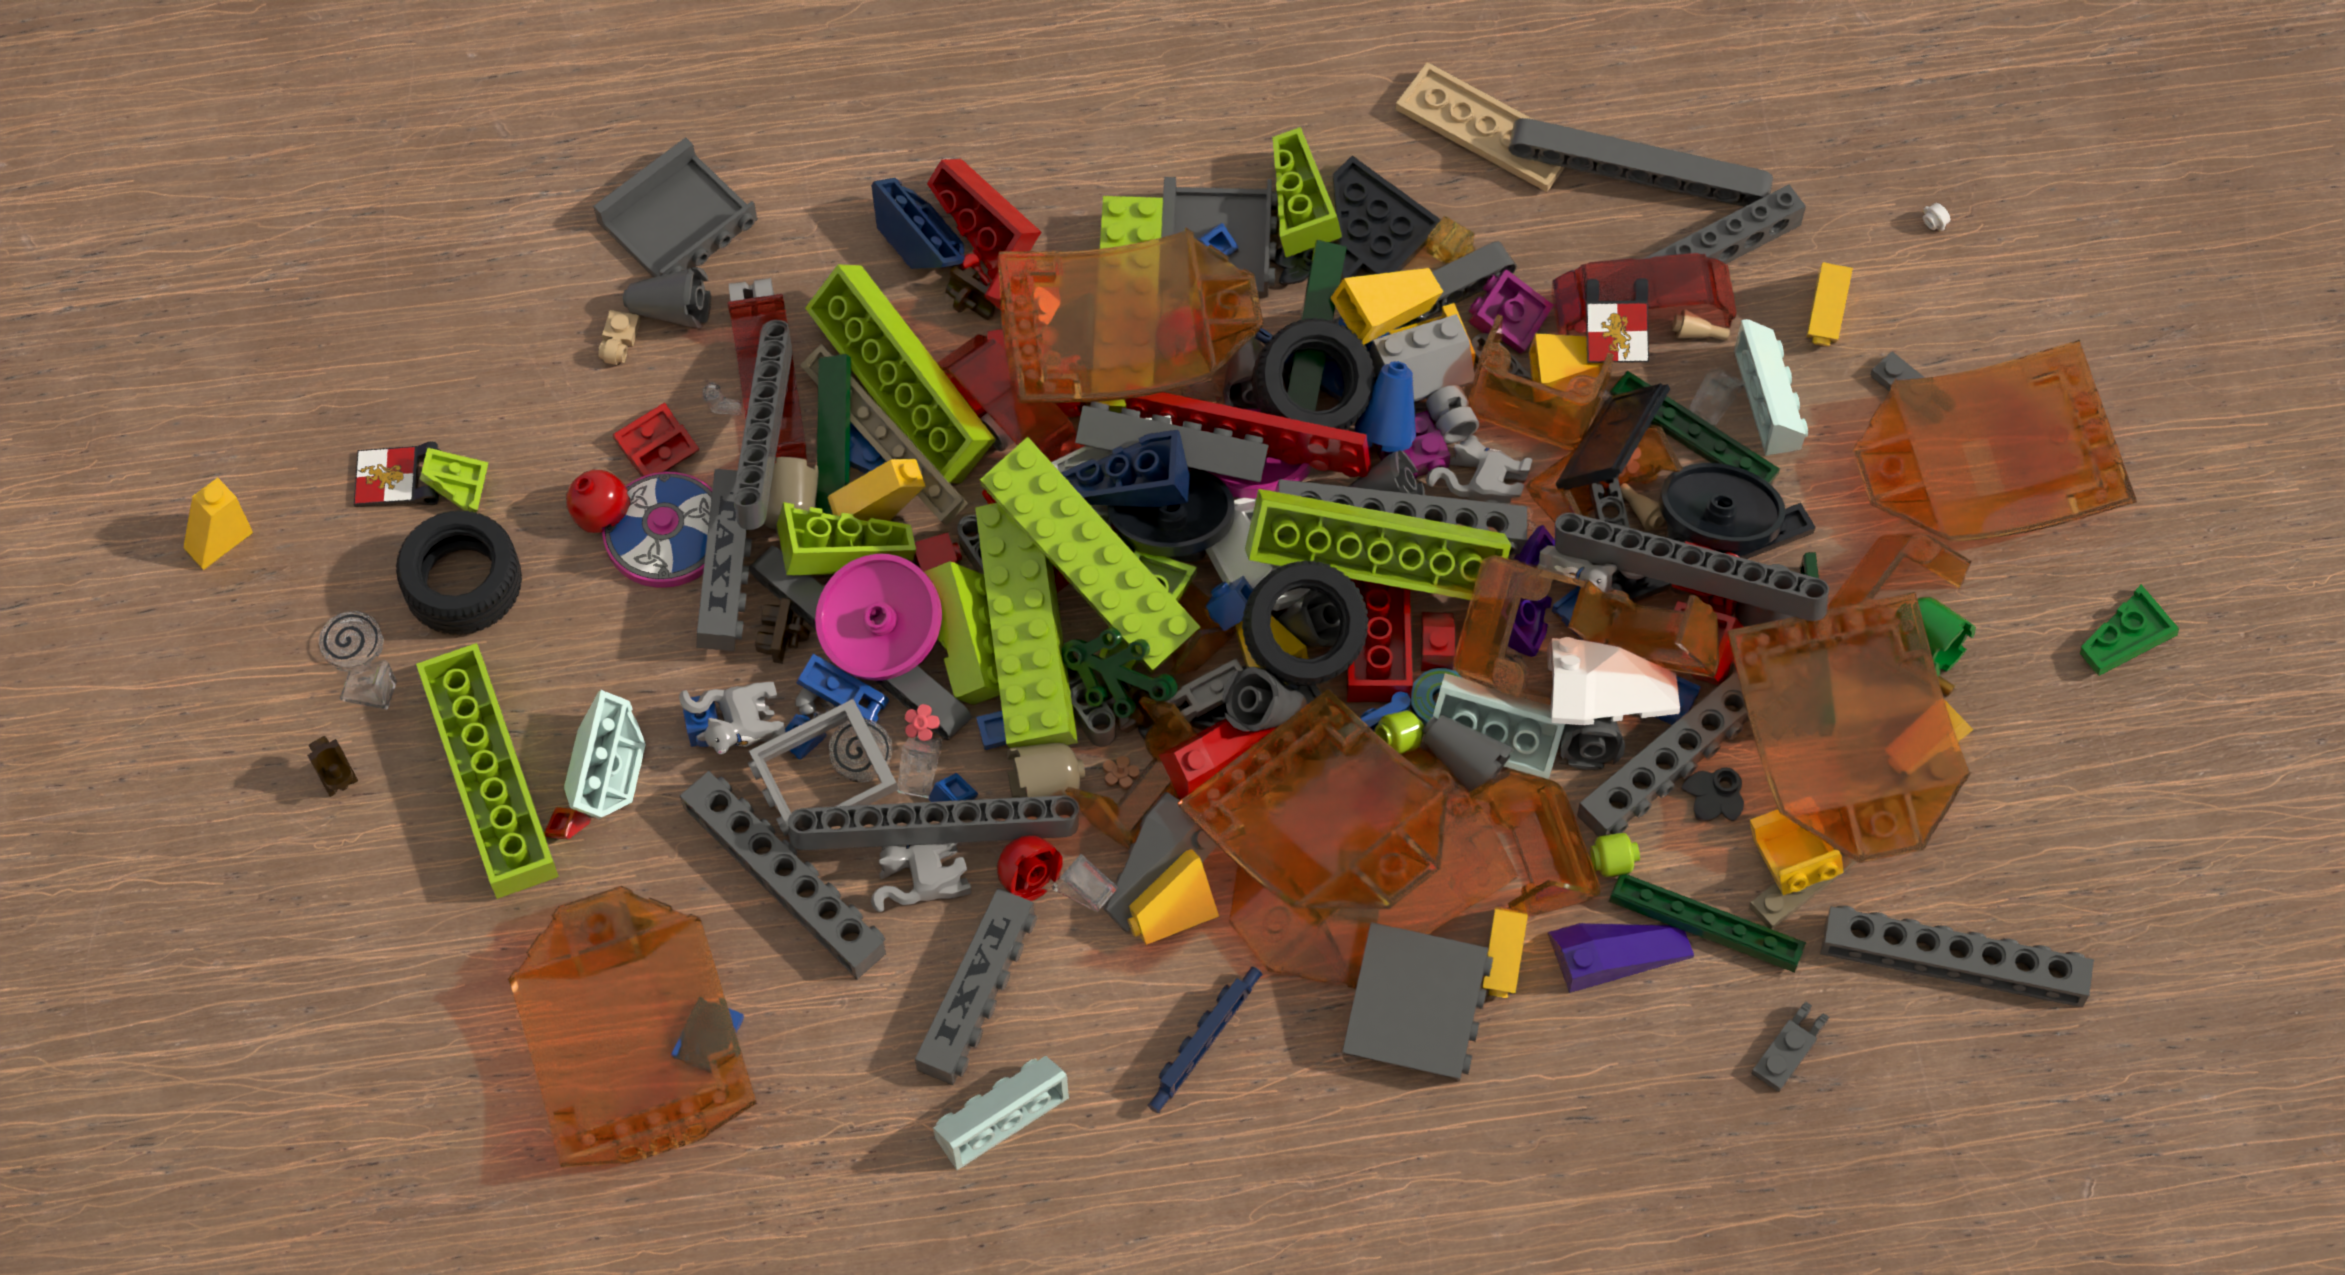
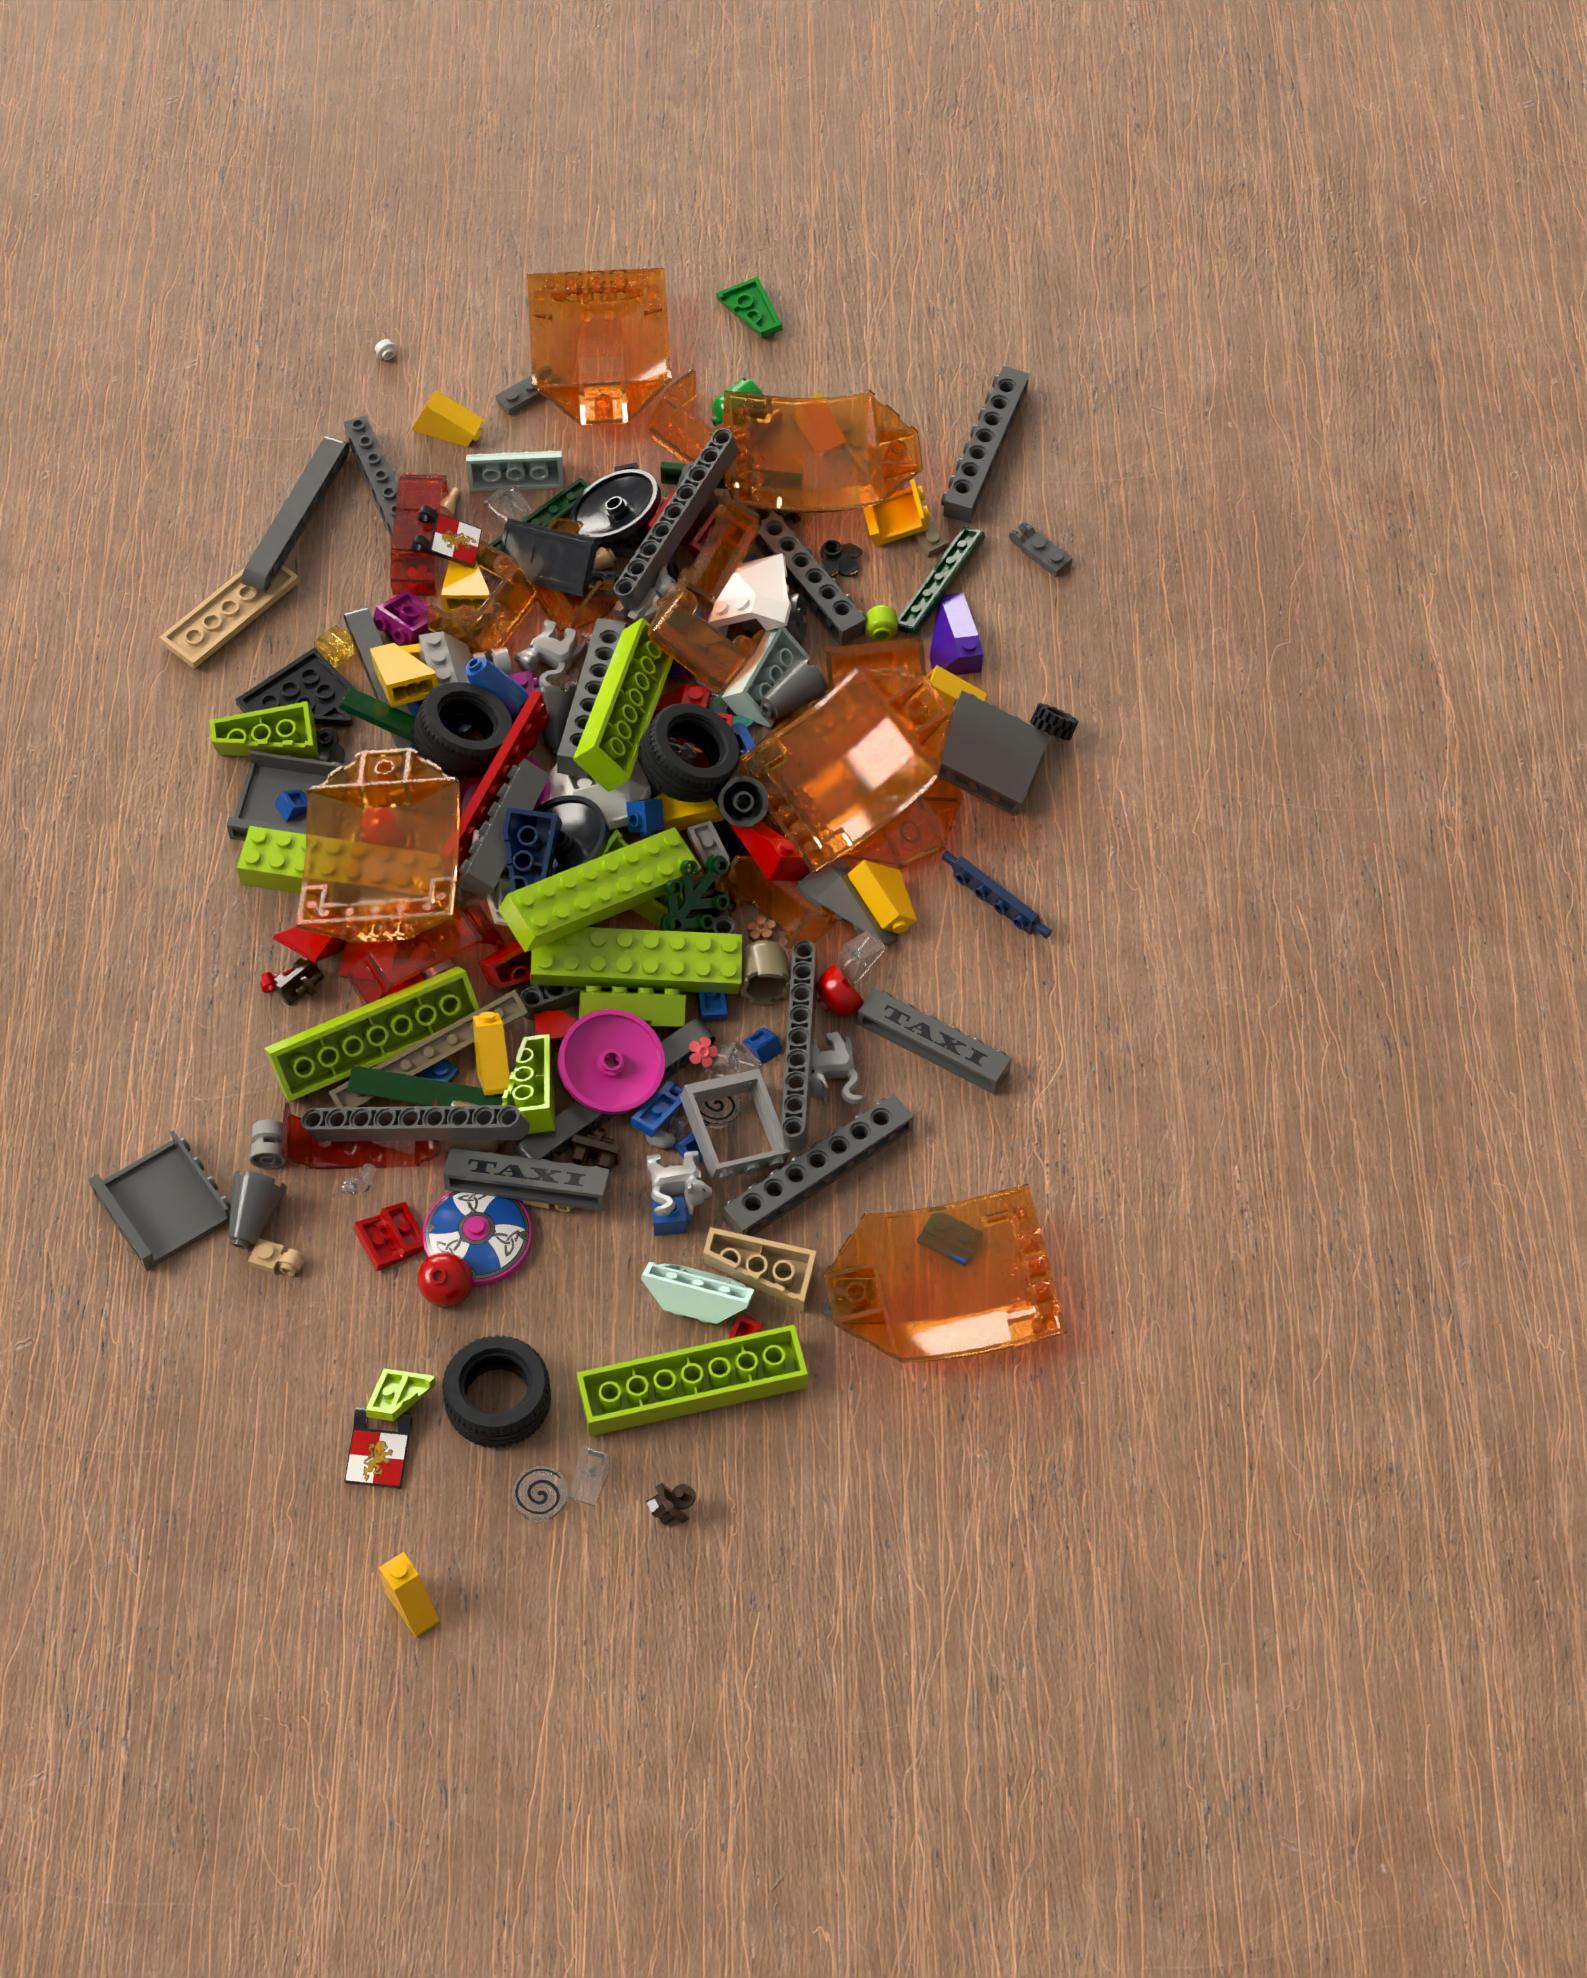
camera: 85 degrees left, 5 degrees down
(641, 827) = (764, 1264): none -> tan wedge
(914, 227) = (233, 1012): dark blue wedge -> none
(981, 213) = (227, 963): red wedge -> none
(1001, 1111) = (1042, 1029): light aqua slope -> none
(1401, 731) = (764, 727): lime head -> none
(1471, 1077) = (1054, 721): none -> black tyre

